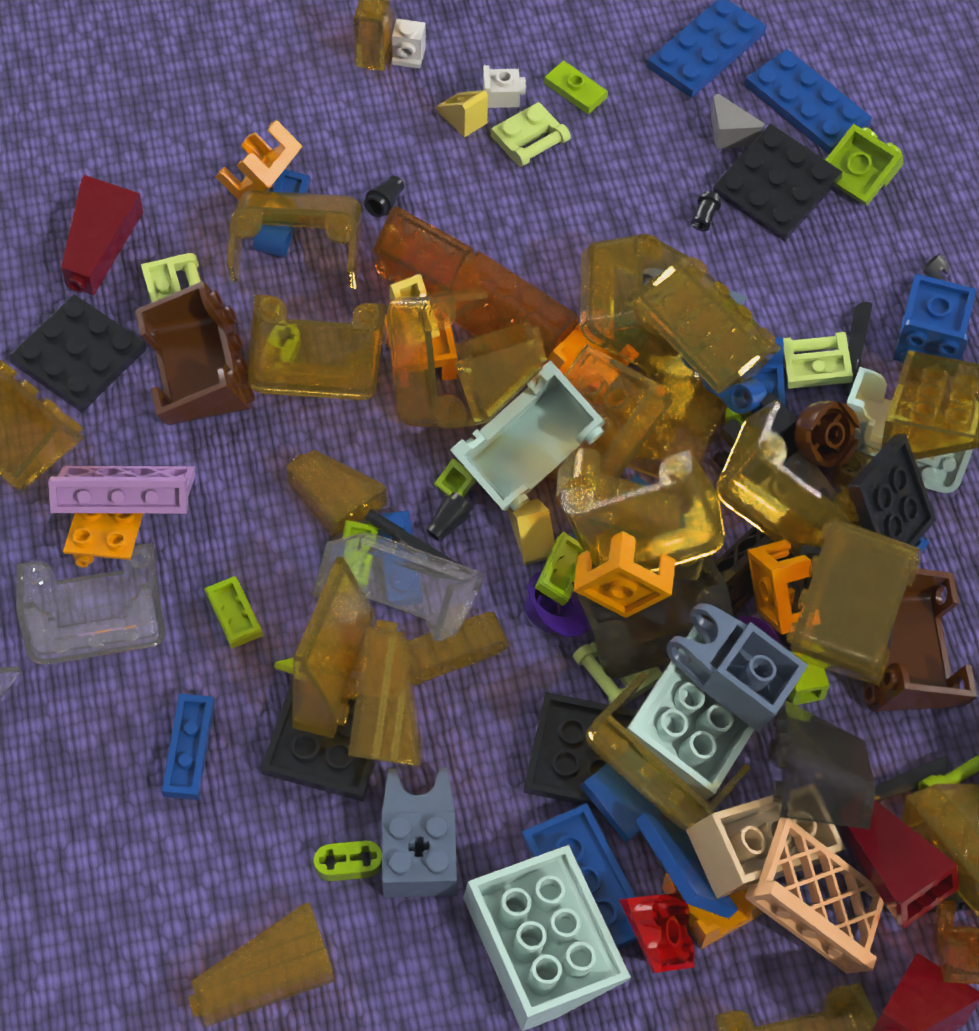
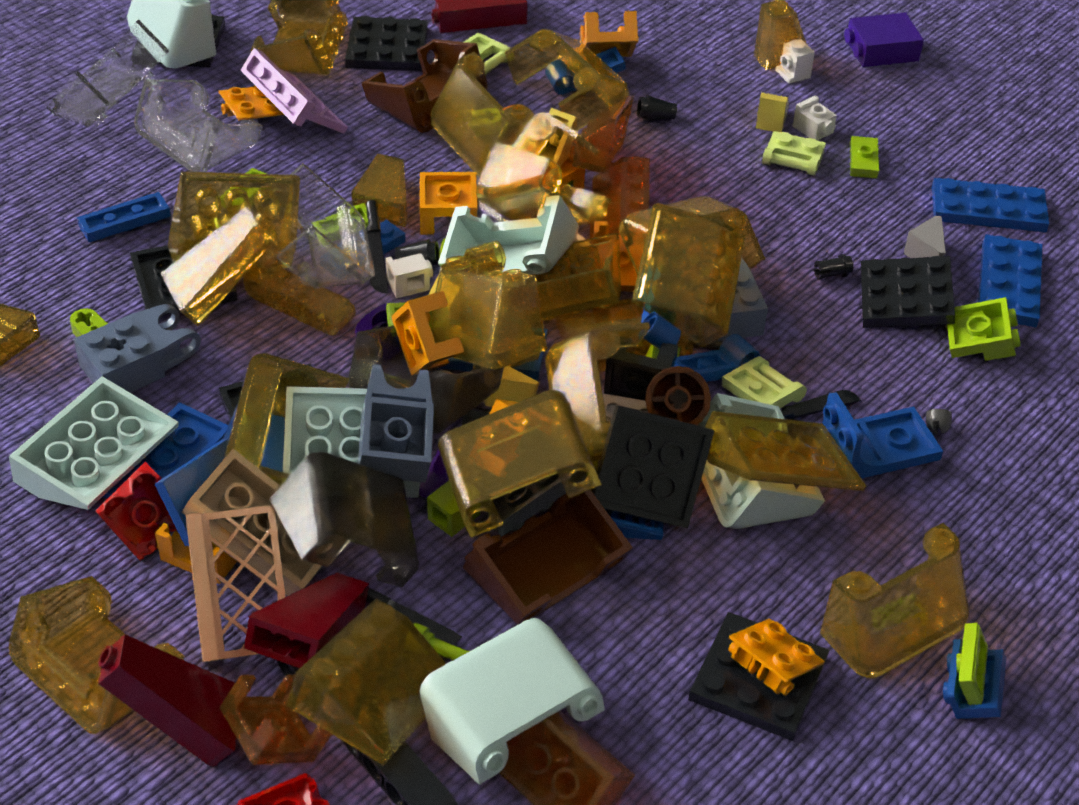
camera: 55 degrees right, 15 degrees down
(398, 446) = (442, 193): none -> light orange panel
(475, 542) = (408, 275): none -> white brick

